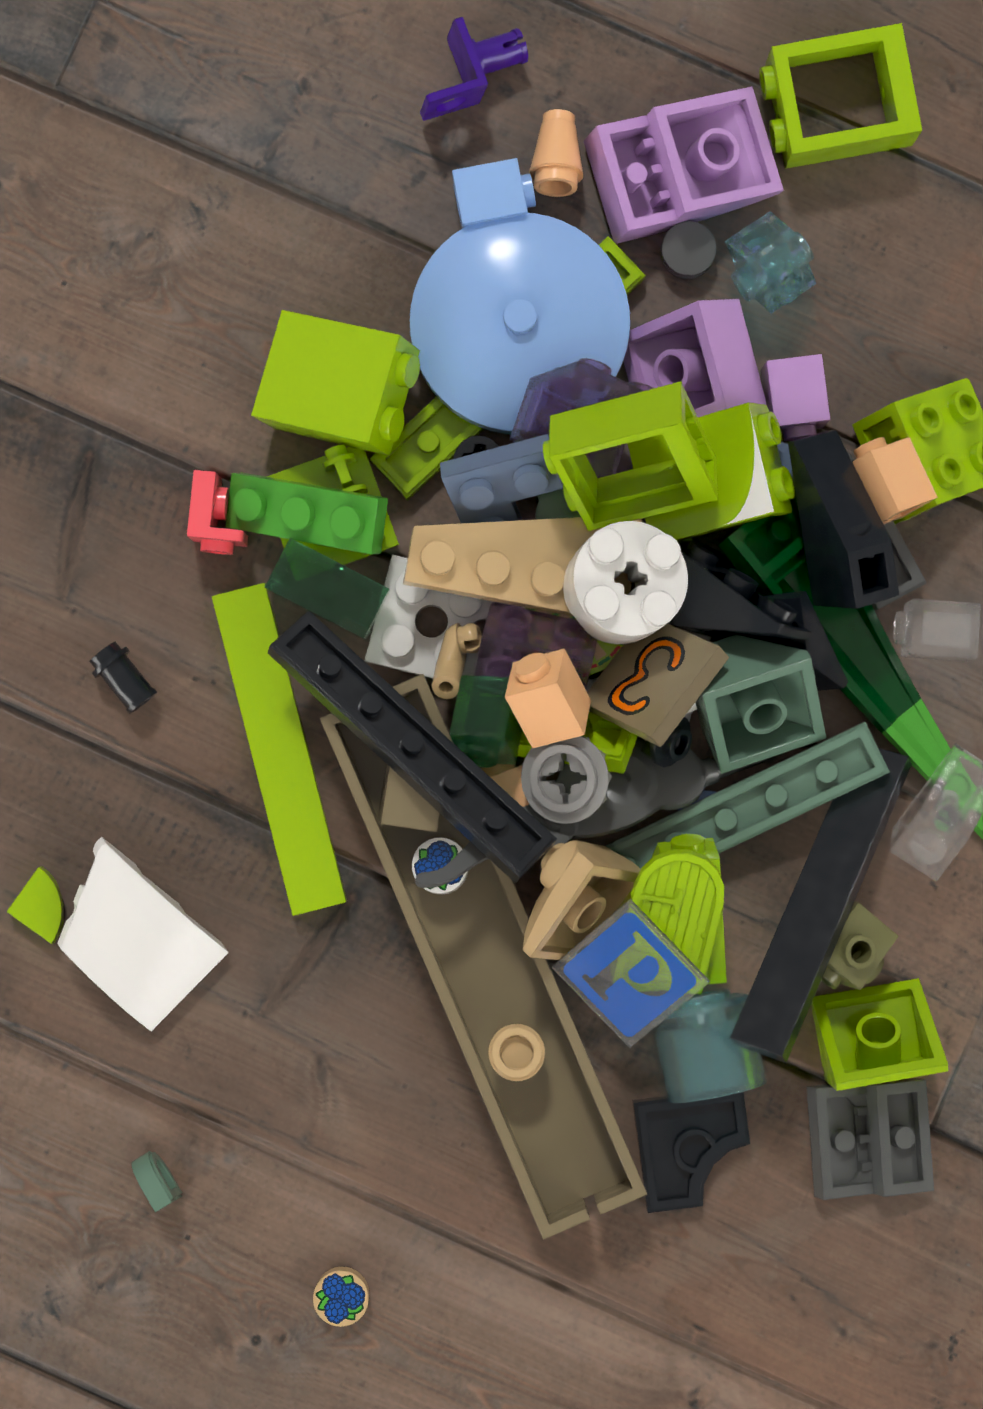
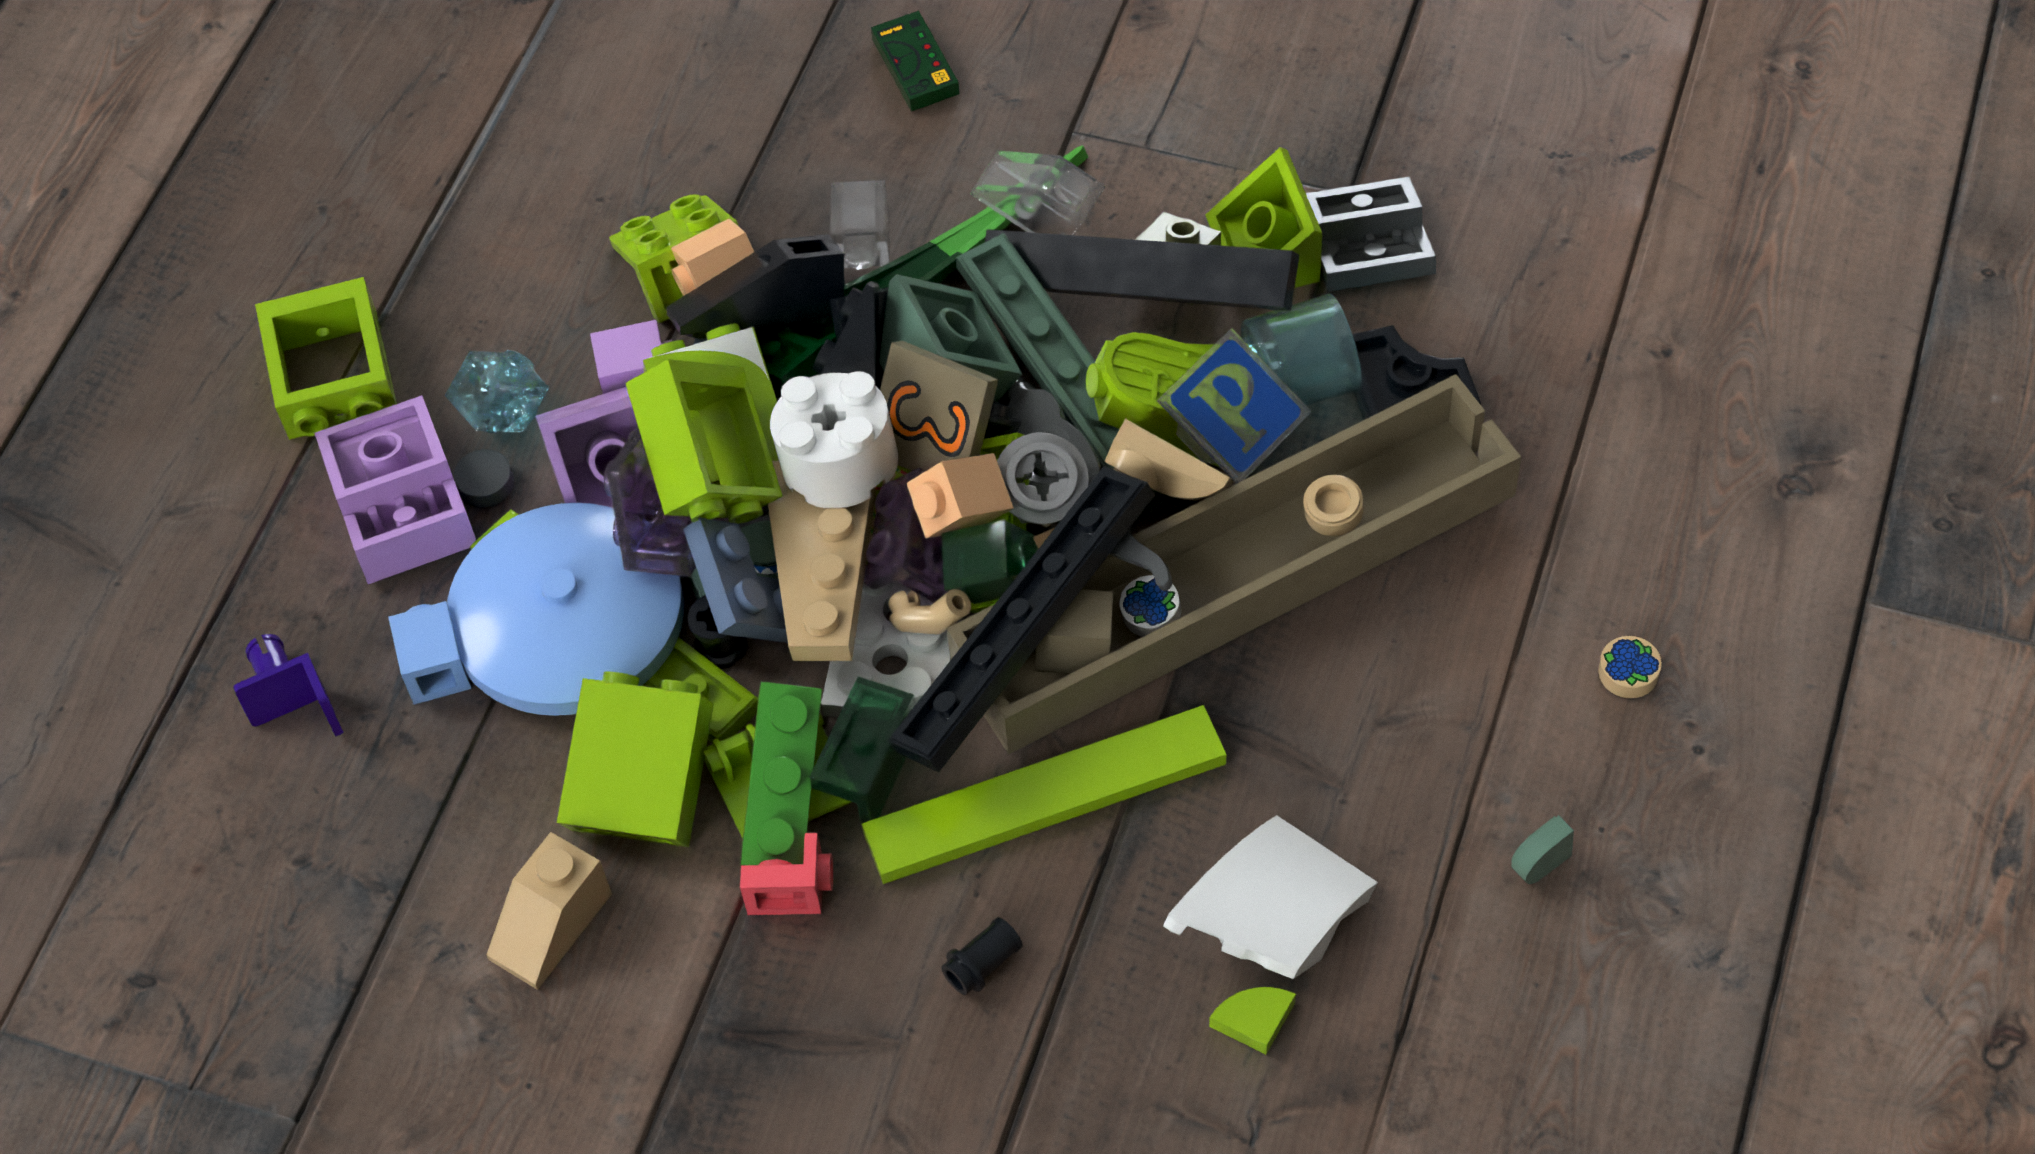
camera: 90 degrees left, 30 degrees down
(212, 302) = (547, 909): none -> tan slope
(557, 156) = (381, 597): light nougat cone -> none

